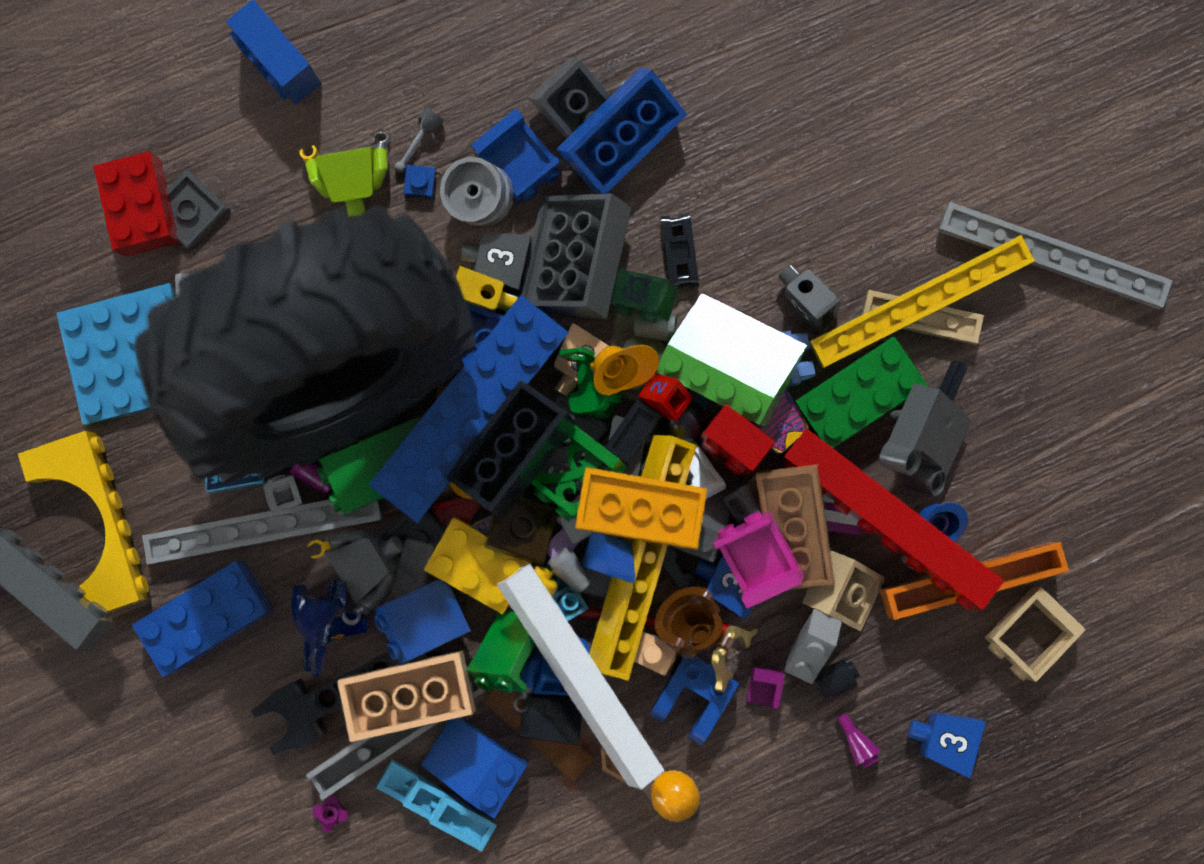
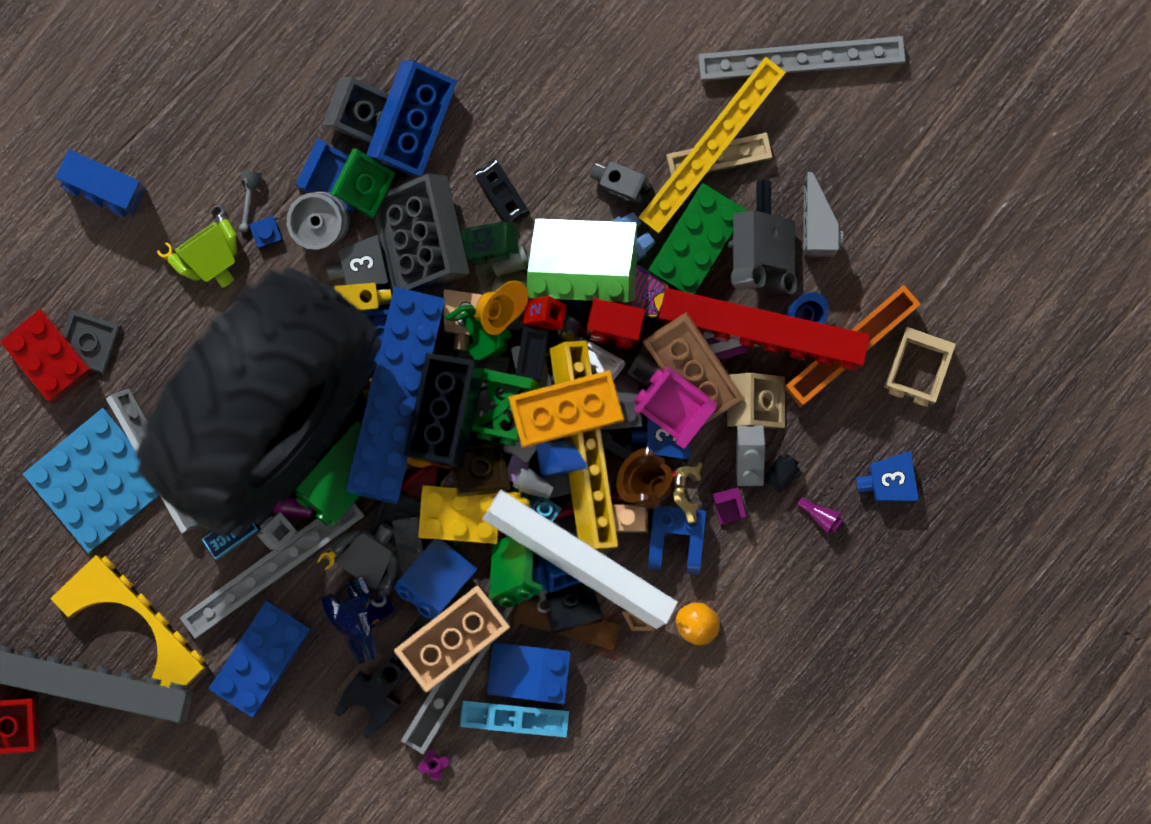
camera: 30 degrees left, 0 degrees up
(540, 174) = (362, 183): none -> green tile
(999, 432) = (820, 226): none -> light grey slope

